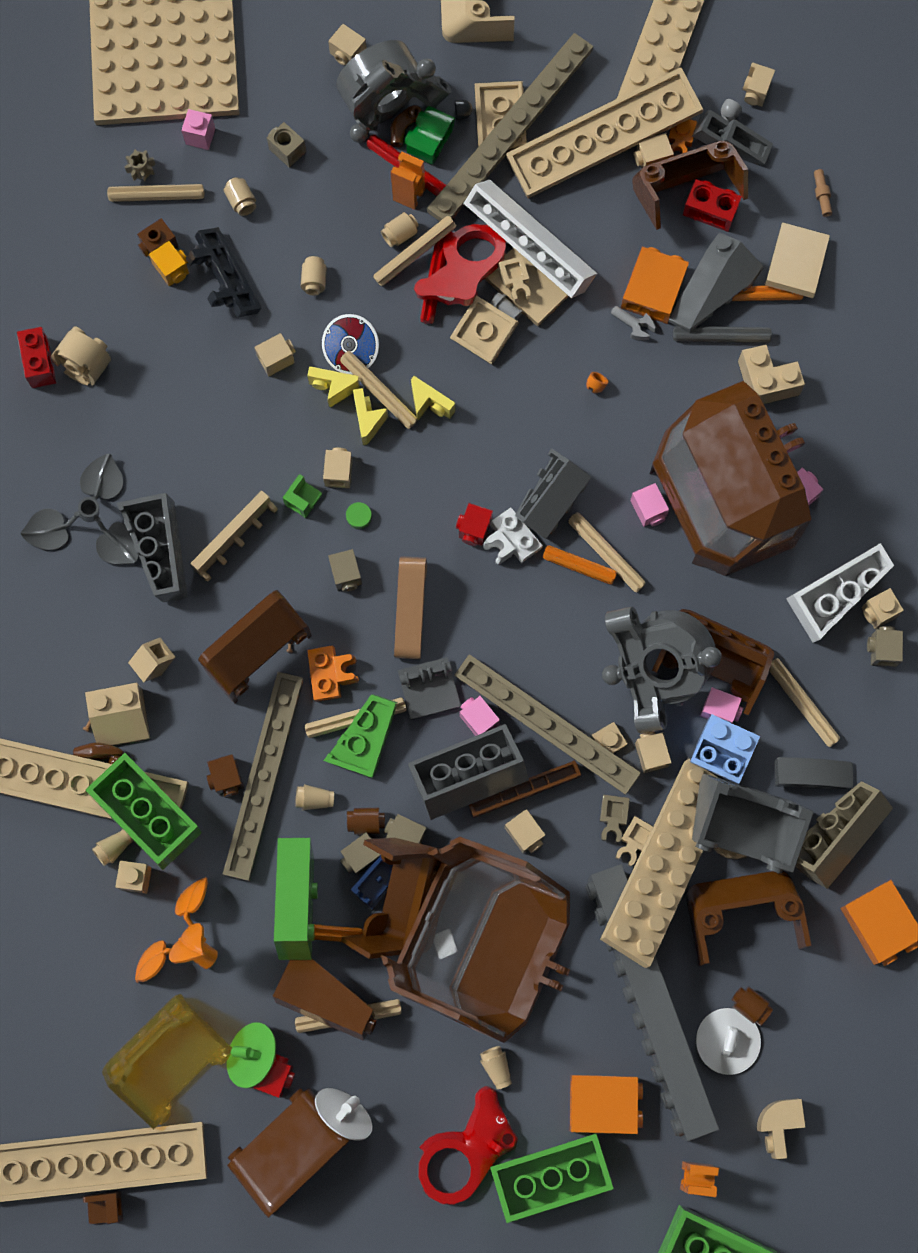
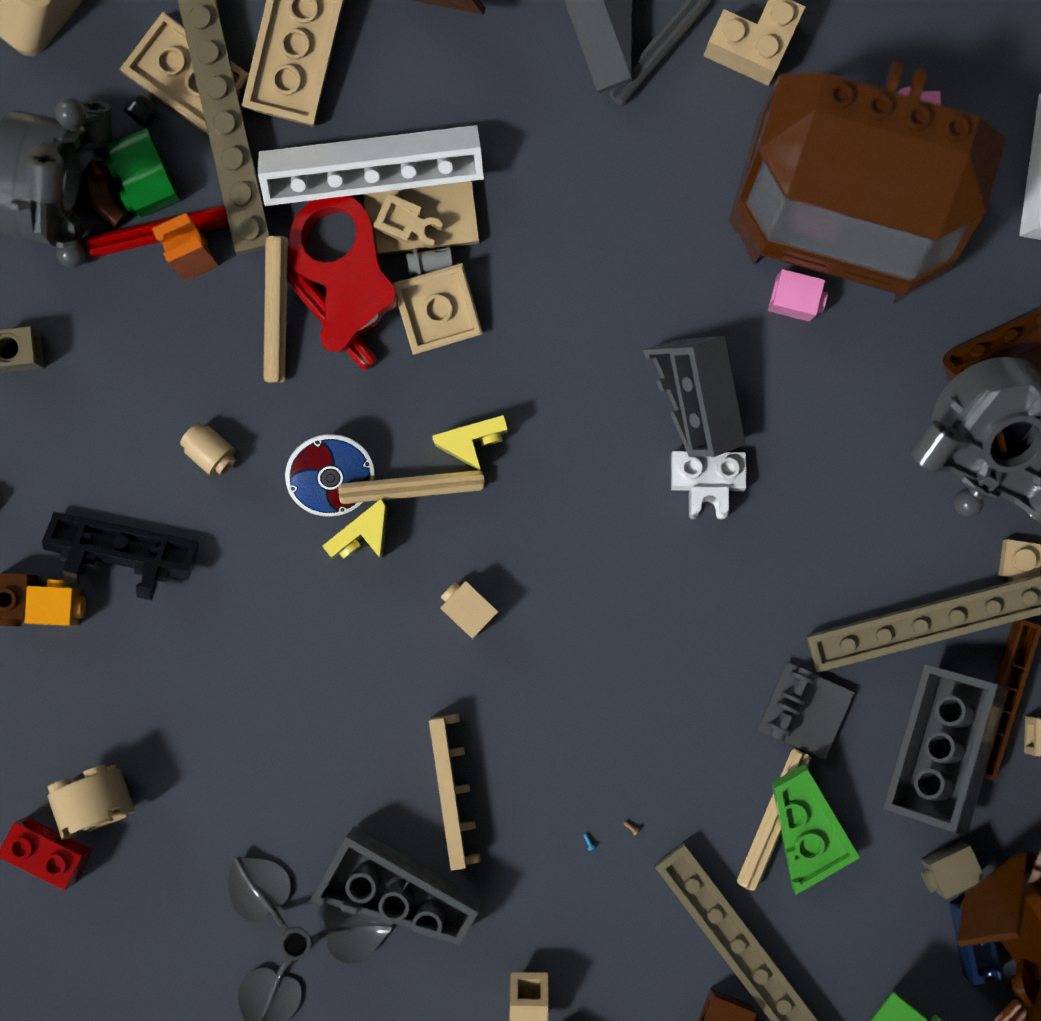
camera: 60 degrees left, 10 degrees up
(240, 196) = (35, 455): tan brick -> none
(252, 643) = (617, 876): reddish brown windscreen -> none
(275, 354) = (270, 570): tan brick -> none
(301, 496) = (468, 675): bright green panel -> none
(313, 798) = (829, 939): tan cone -> none
(329, 672) = (699, 808): orange plate -> none
(345, 570) = (598, 698): dark tan brick -> none
(357, 856) = (936, 938): dark tan brick -> none
(358, 515) = (541, 629): bright green tile -> none
(365, 821) = (902, 902): reddish brown brick -> none
(369, 420) = (441, 531): light yellow slope -> none
(399, 229) = (233, 304): tan brick -> none
(410, 607) = (699, 656): medium nougat beam -> none
(474, 524) = (661, 509): red brick -> none
(478, 716) = (886, 684): bright pink brick -> none
(579, 564) = (799, 429): orange axle -> none
(596, 382) = (603, 233): orange hinge -> none
(607, 552) = (808, 387): tan axle -> none
(635, 323) = (566, 132): light grey bar -> none
(654, 284) = (542, 70): orange brick -> none

